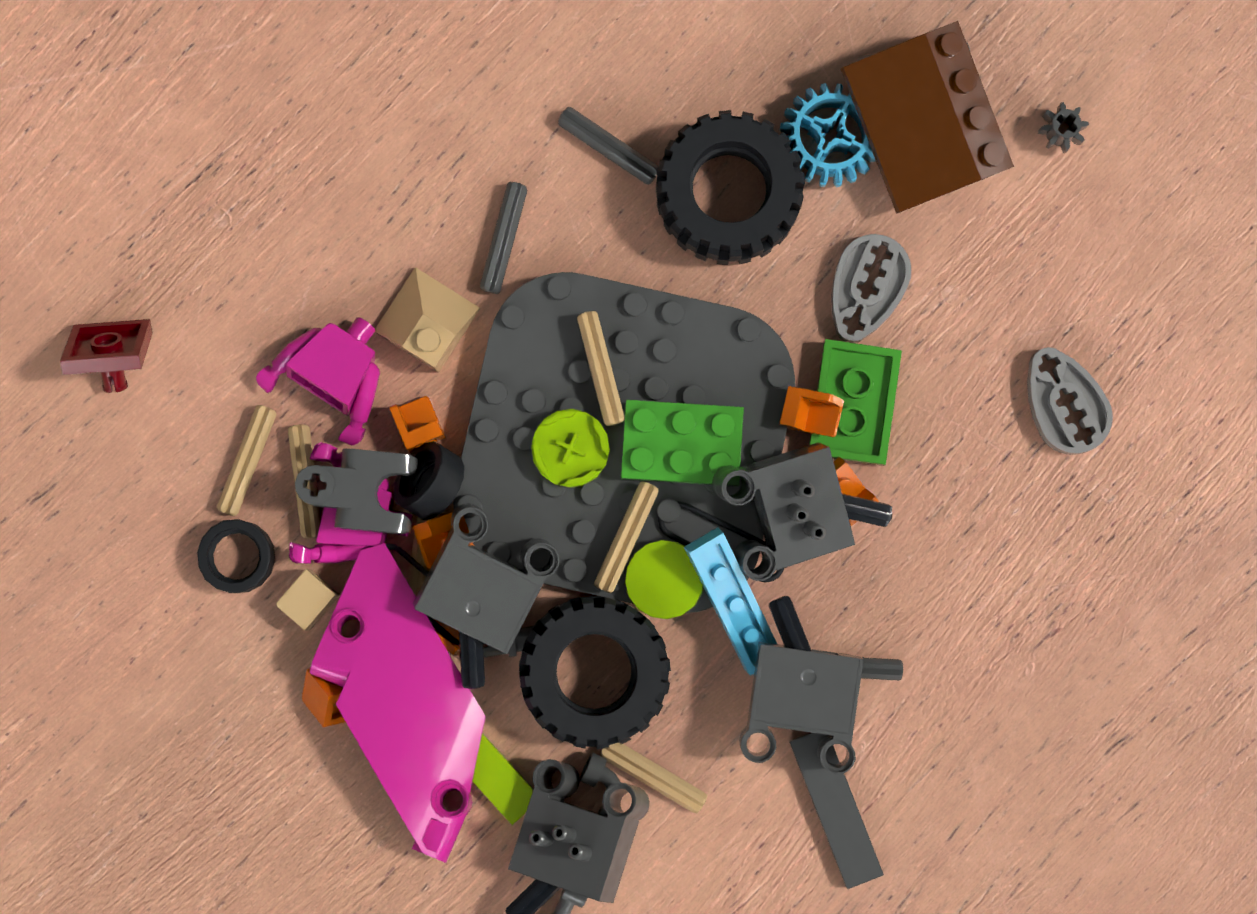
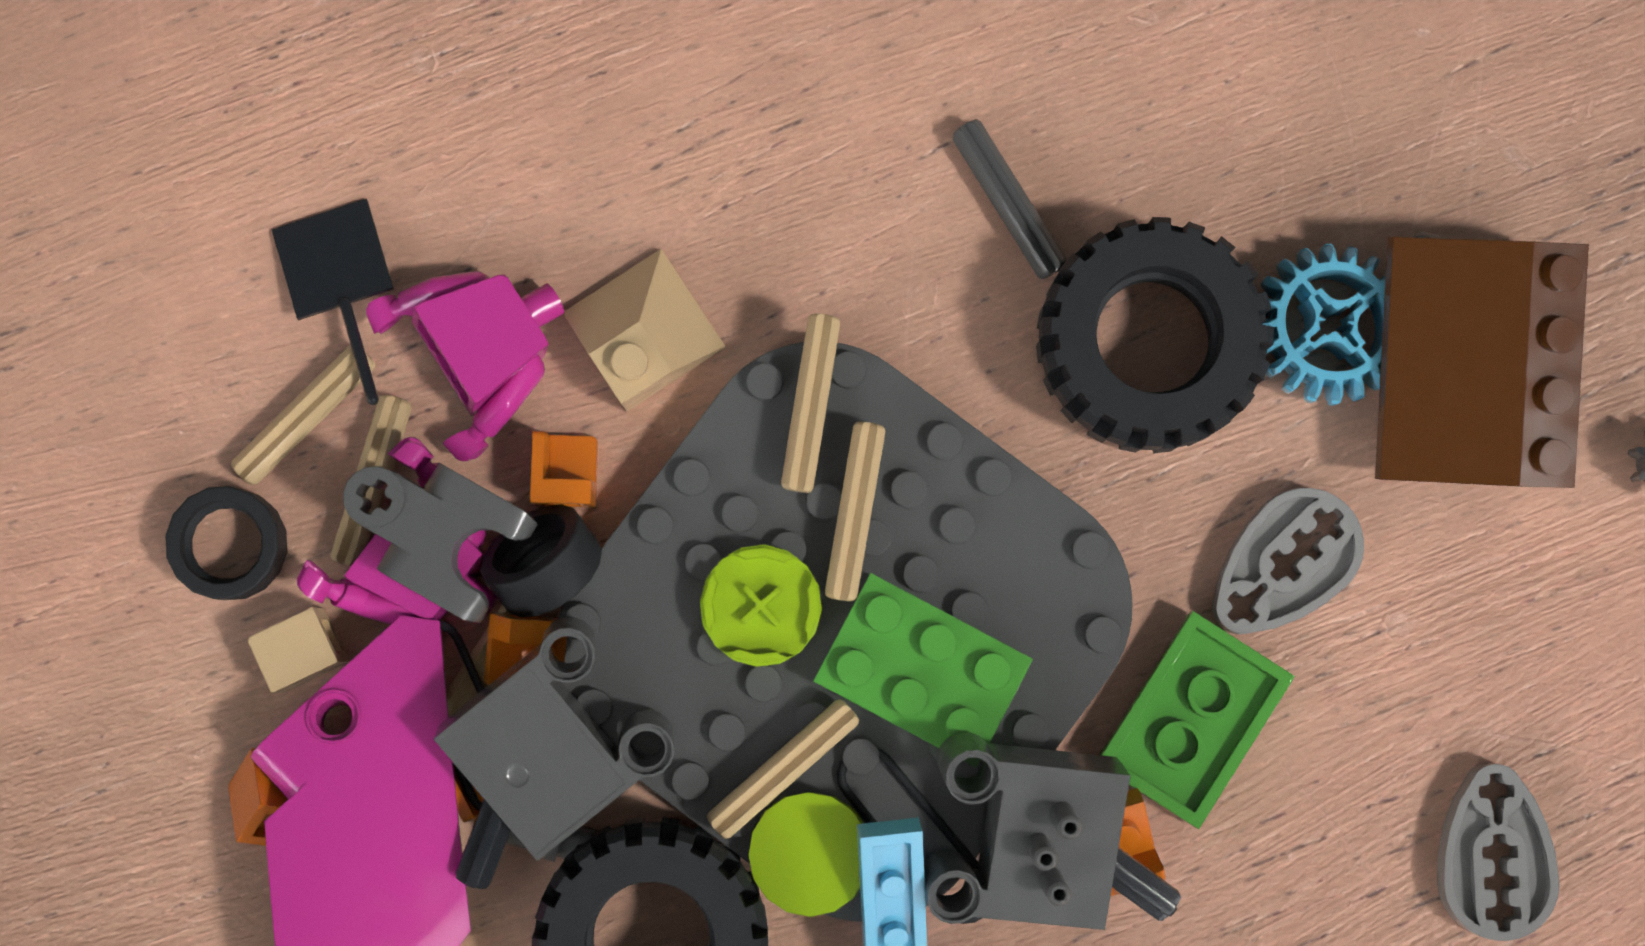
camera: 25 degrees right, 0 degrees up
(107, 350) = (177, 173): dark red tile -> none
(223, 363) = (334, 263): none -> black piece
(503, 237) = (803, 263): dark grey axle -> none
(546, 316) = (810, 403): none -> tan axle
(811, 411) = (1127, 708): orange panel -> none

